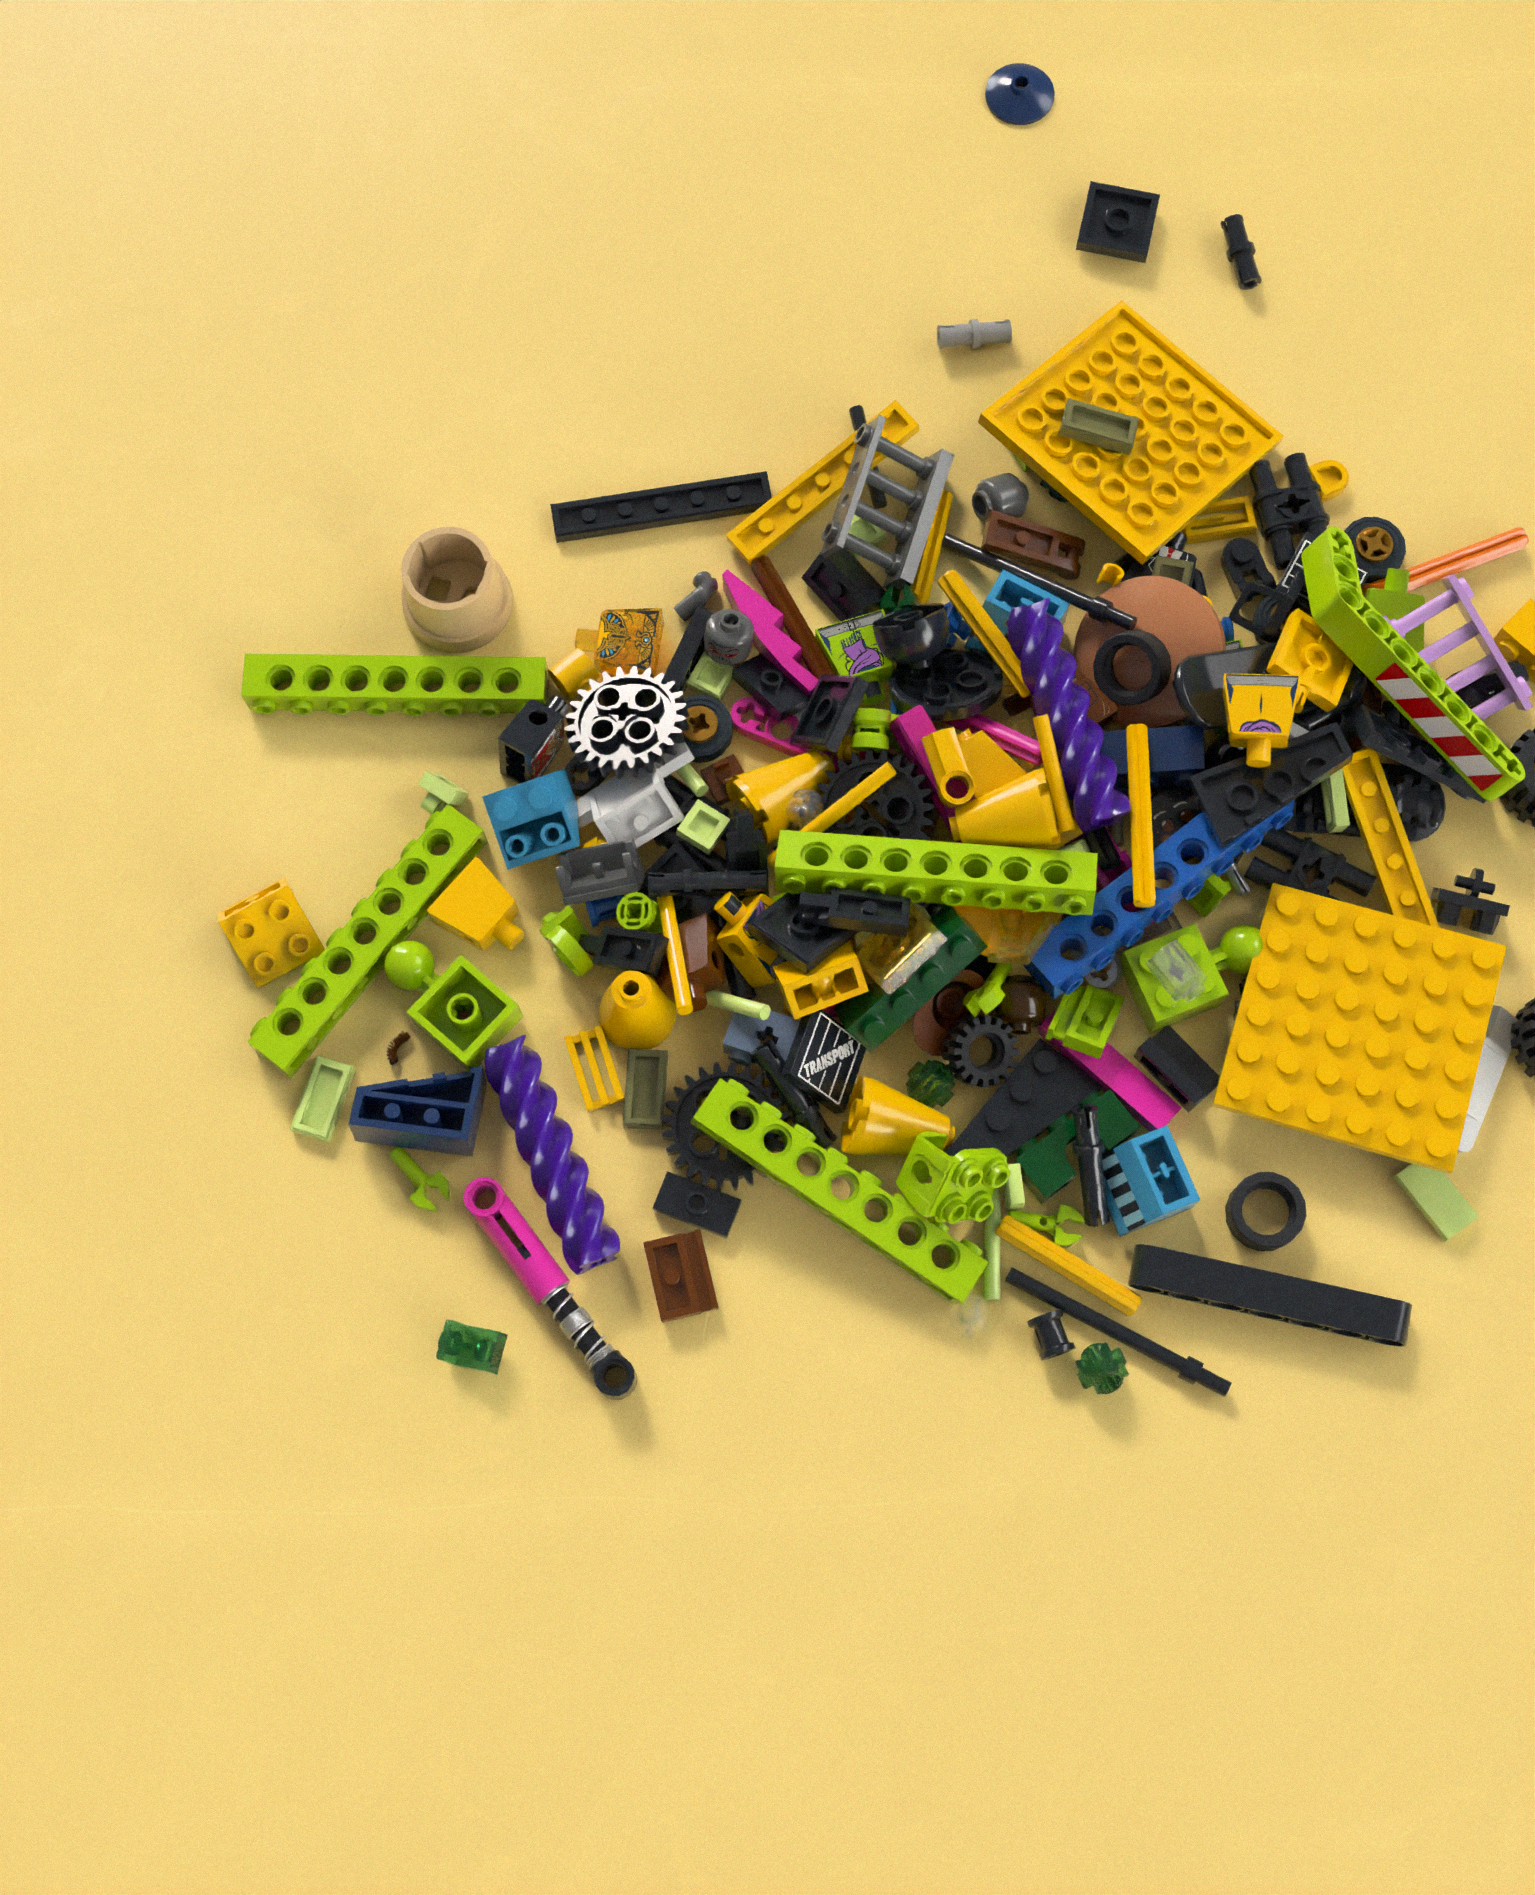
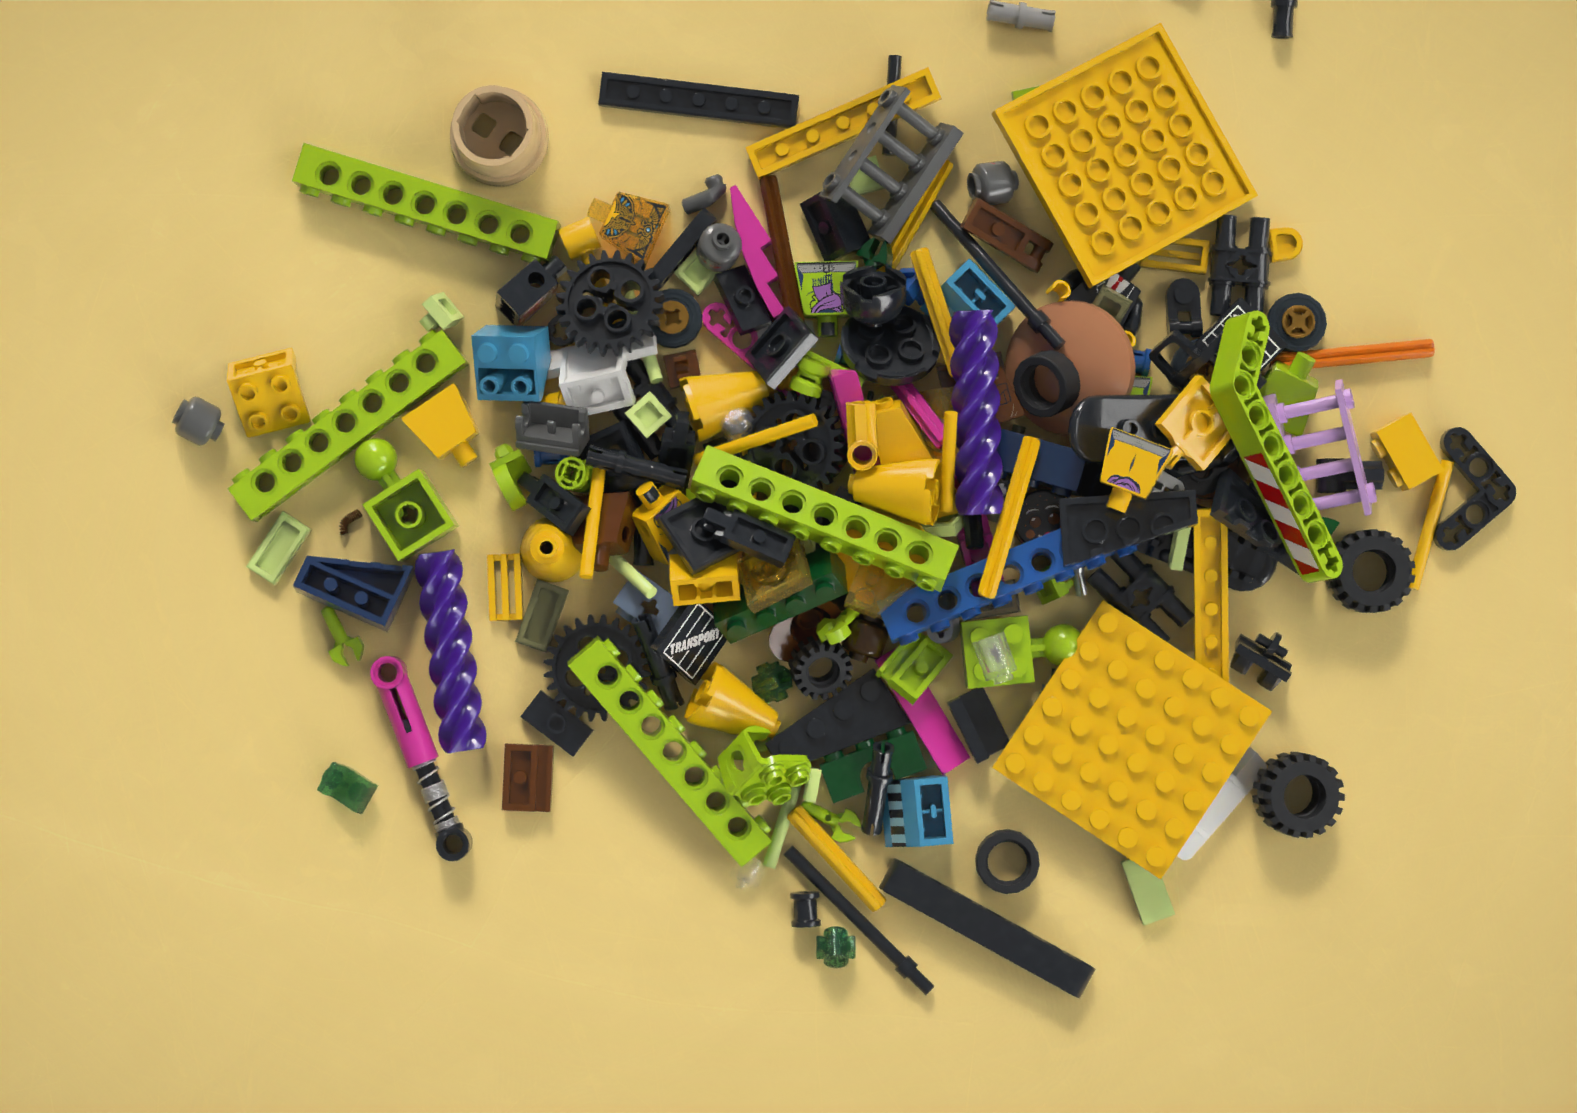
camera: 15 degrees right, 15 degrees up
(196, 981) = (198, 421): none -> dark grey head
(1098, 426) = (1093, 150): olive tile -> none

